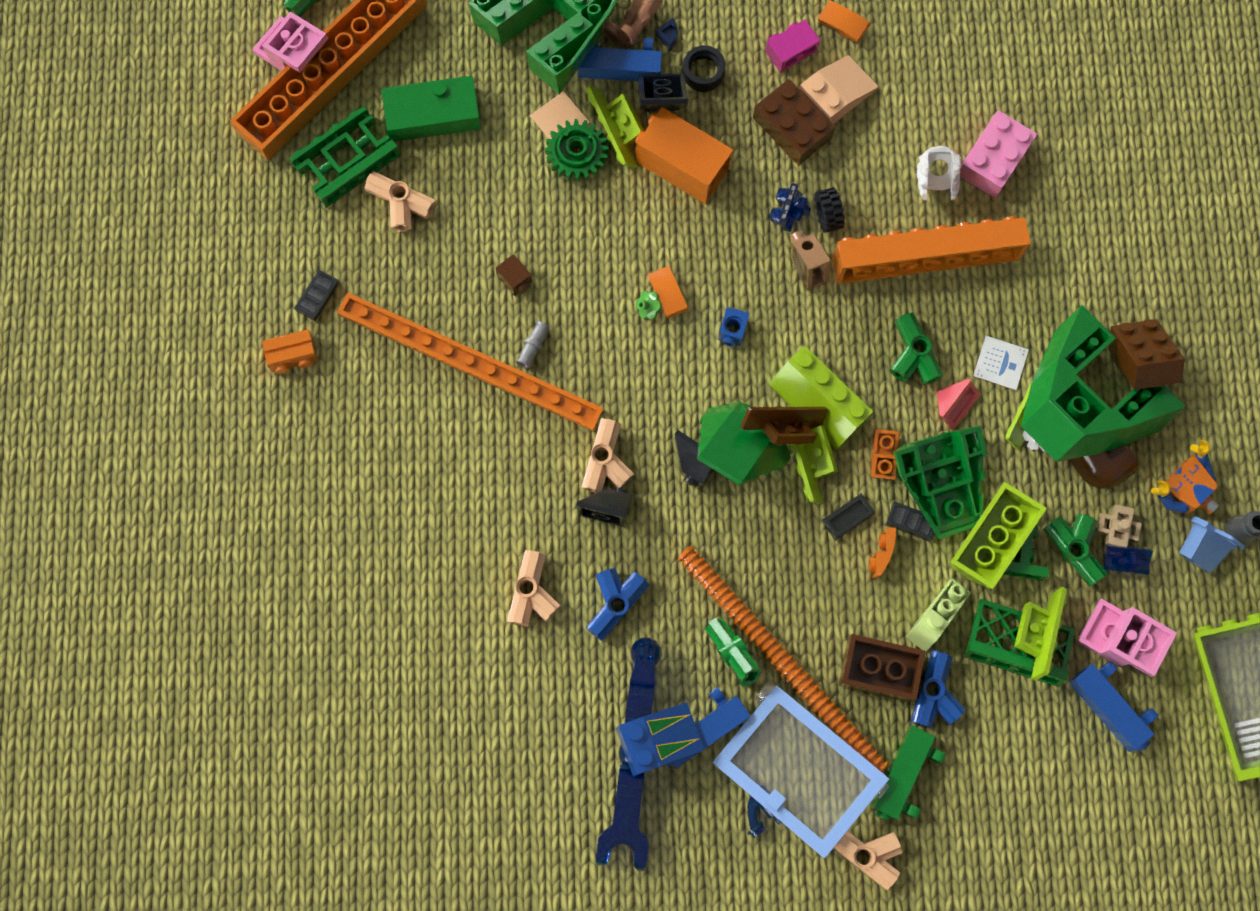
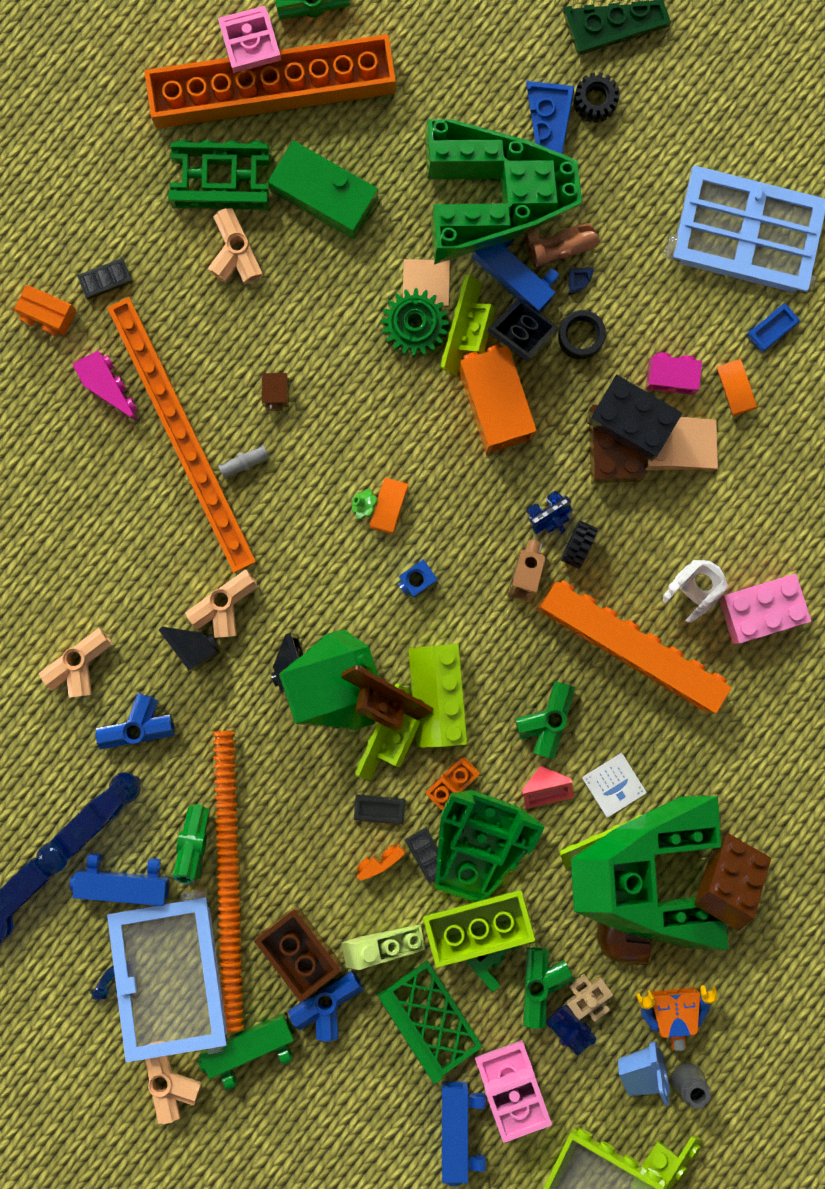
camera: 40 degrees right, 10 degrees up
(377, 370) = (98, 378): none -> dark pink slope
(659, 739) = (73, 867): blue slope -> none
(794, 88) = (634, 418): none -> black brick
(1039, 631) = (447, 1029): lime bracket -> none

